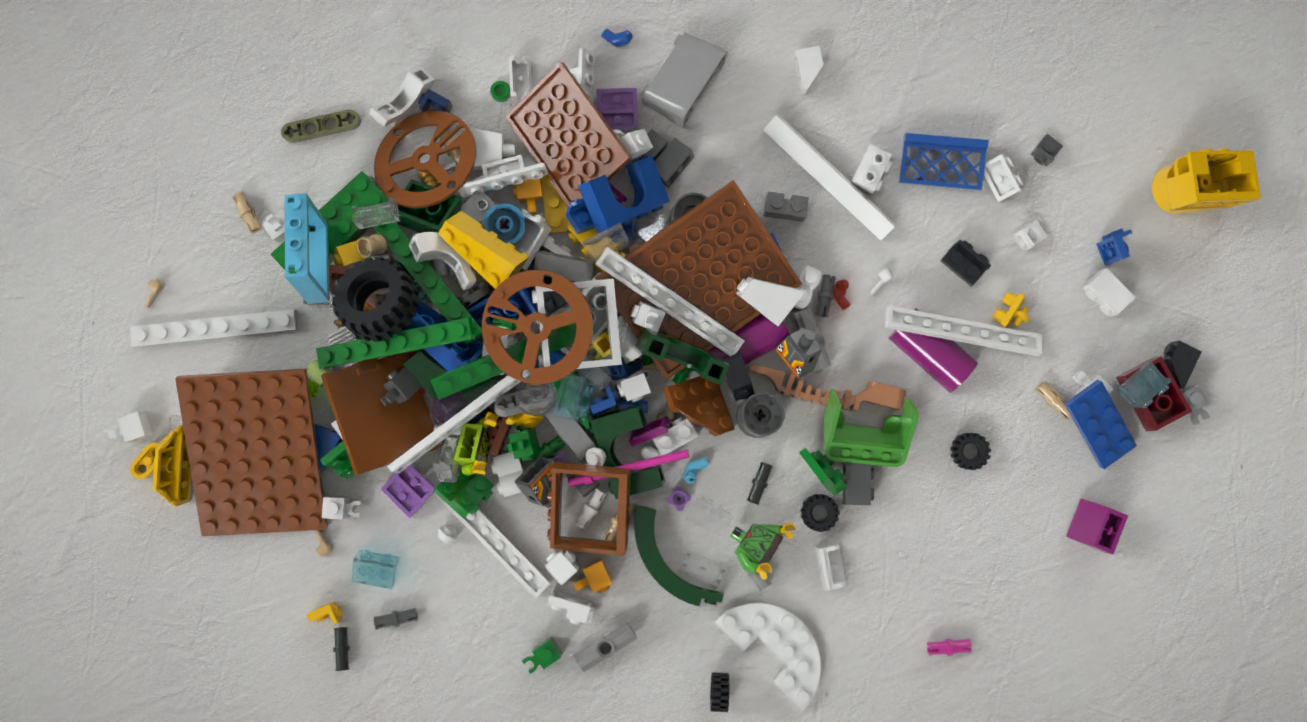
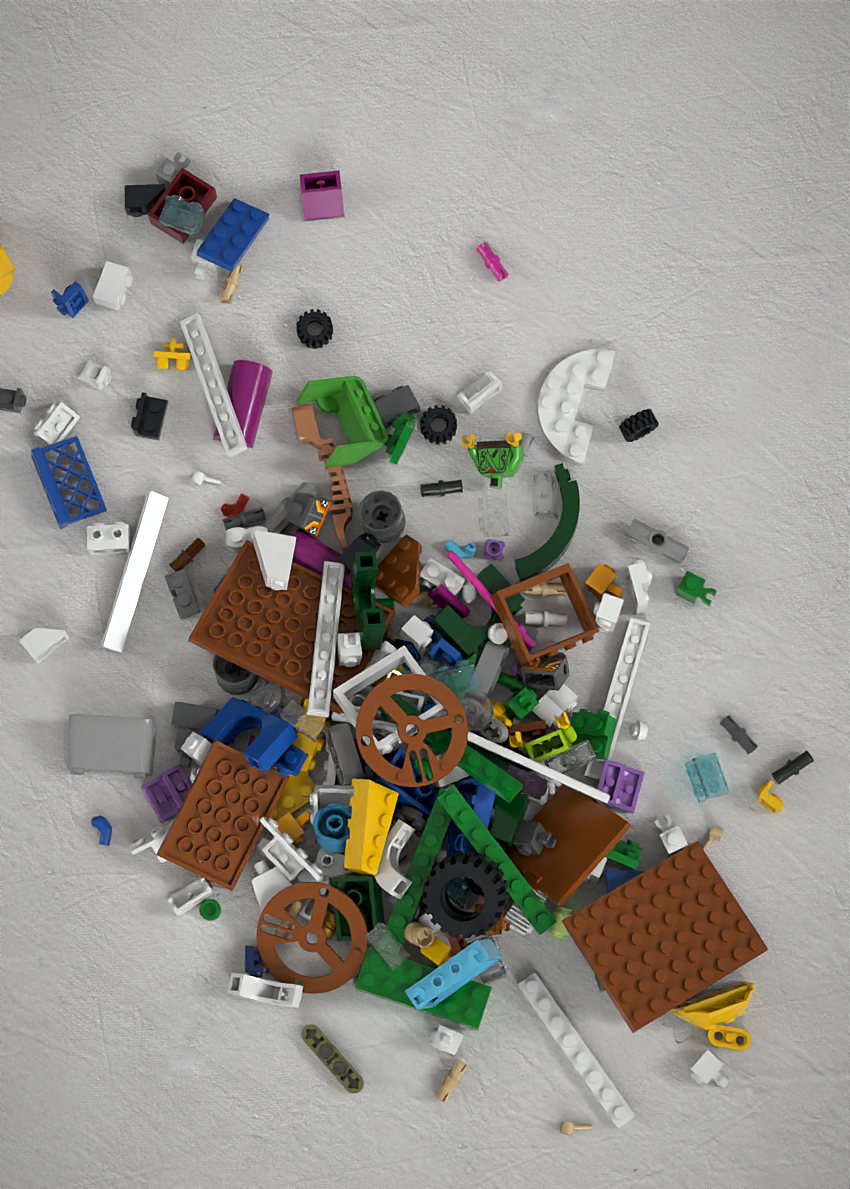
camera: 110 degrees left, 10 degrees down
(819, 229) = (187, 556): none -> reddish brown axle

